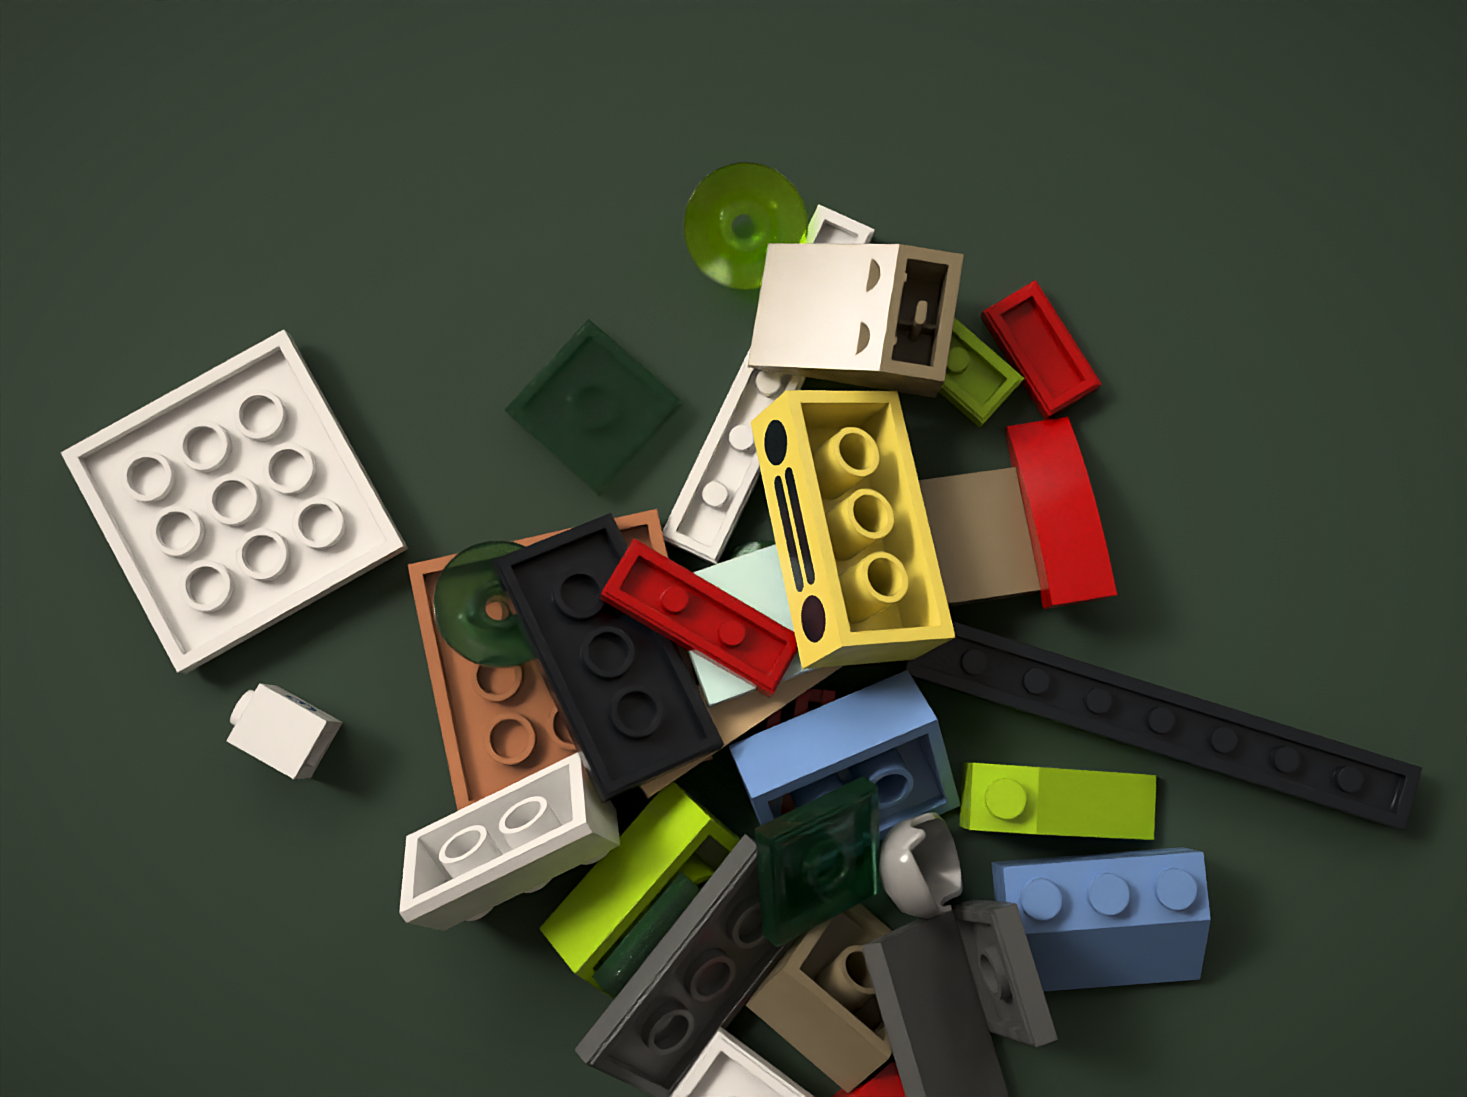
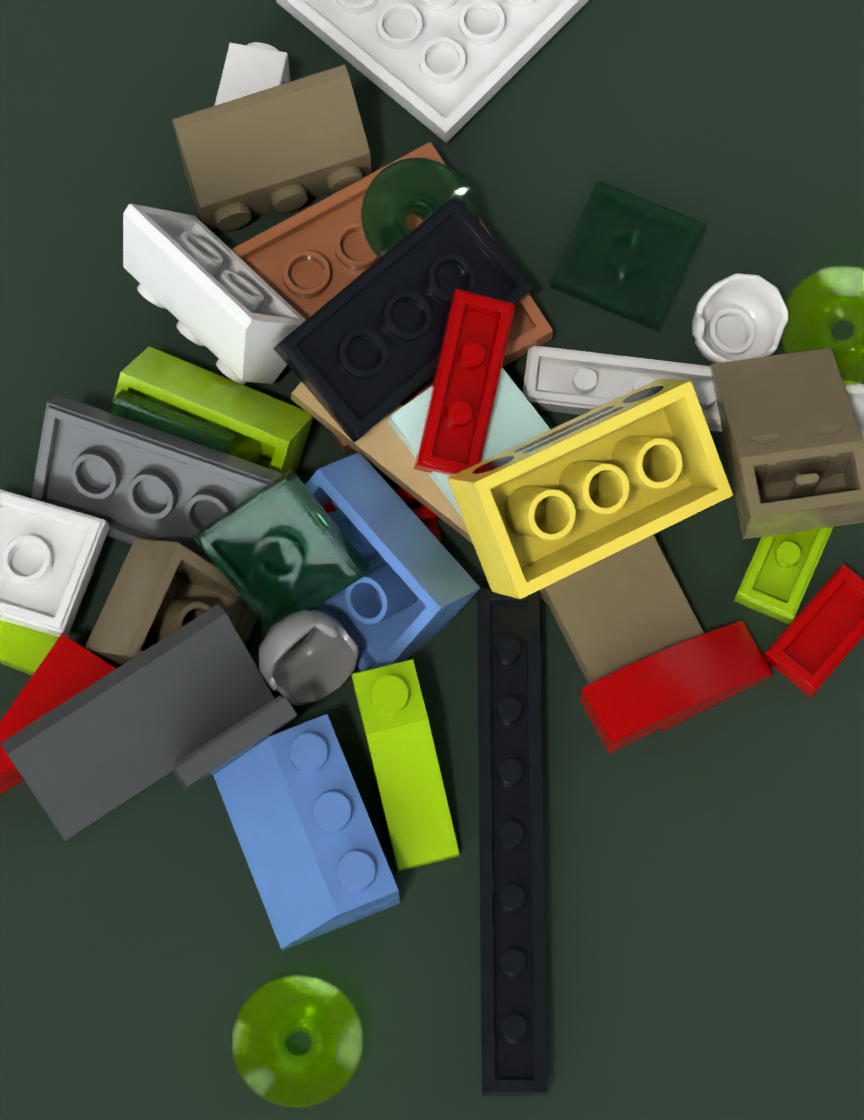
camera: 70 degrees right, 10 degrees down
(367, 732) = (273, 149): none -> dark tan slope
(709, 322) = (739, 319): none -> white hair
(1334, 999) = (291, 1007): none -> clear neon green dish

